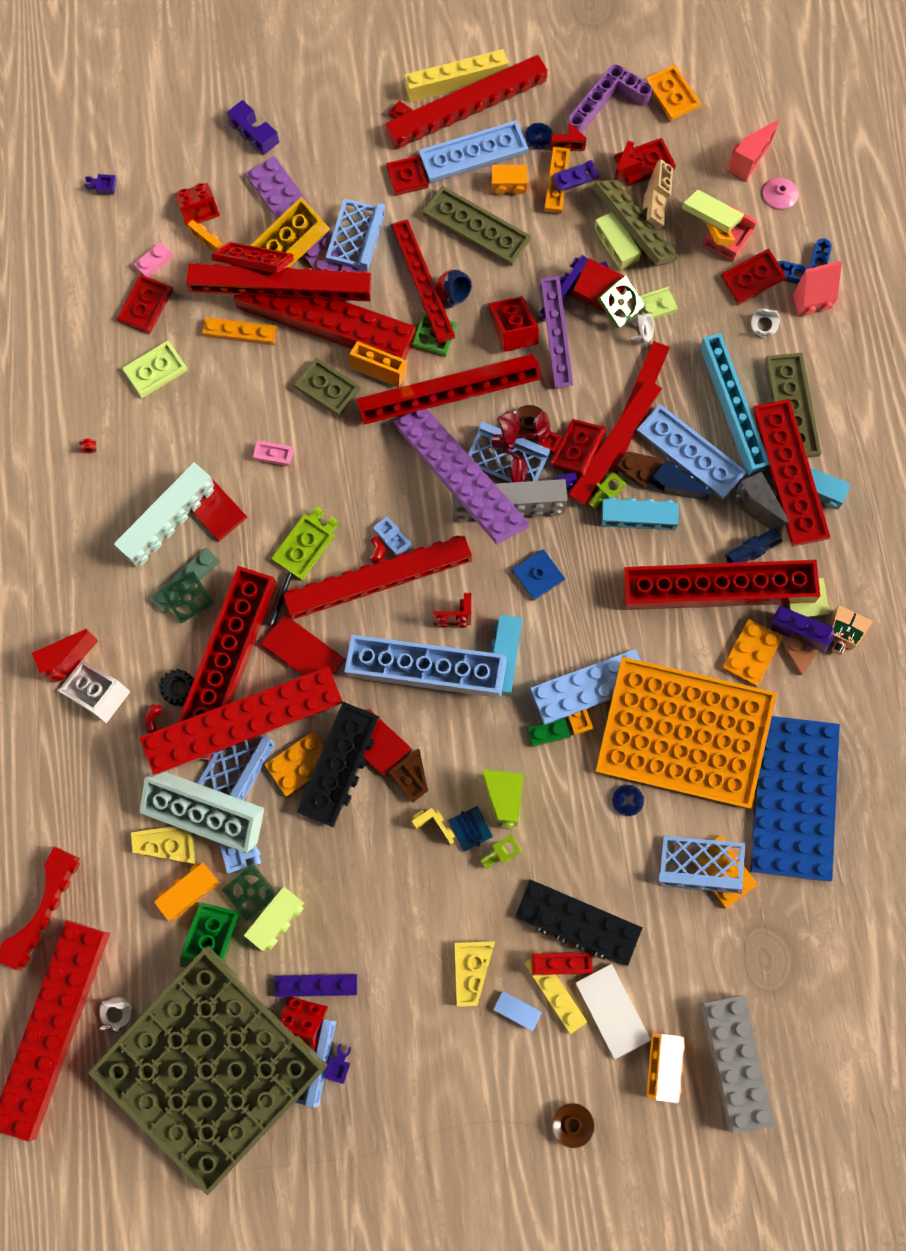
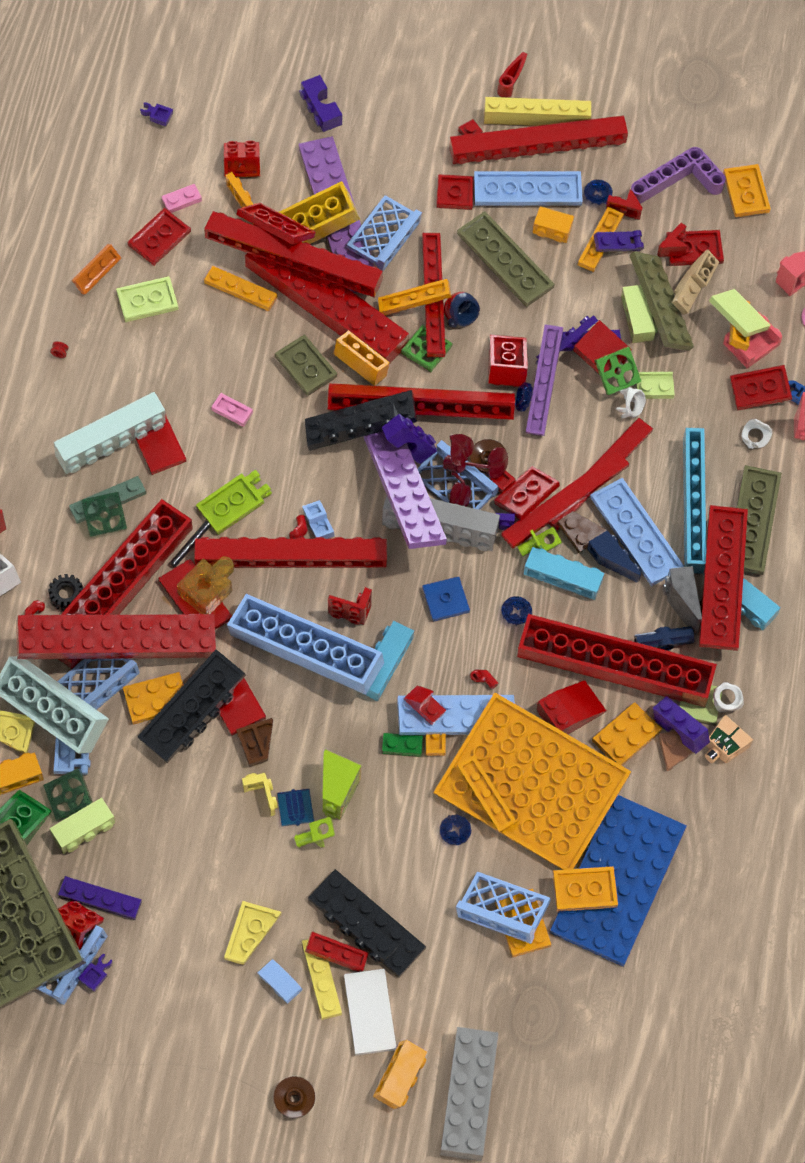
camera: 15 degrees right, 10 degrees down
(96, 355) = (96, 269): none -> orange plate
(311, 636) = (207, 584): none -> clear yellow brick
(399, 426) = (358, 420): none -> black plate
(407, 289) = (414, 297): none -> light orange plate
(419, 48) = (510, 76): none -> red piece
(445, 426) = (402, 431): none -> dark purple arch
(542, 353) = (523, 396): none -> clear blue gear
(559, 689) = (423, 702): none -> red slope
(601, 639) = (484, 676): none -> red arm
(607, 556) = (518, 603): none -> clear blue gear
(648, 758) = (486, 793): none -> light orange plate
(692, 644) = (570, 707): none -> red slope
(772, 821) = (585, 889): none -> light orange plate
(844, 591) = (736, 705): none -> white piece

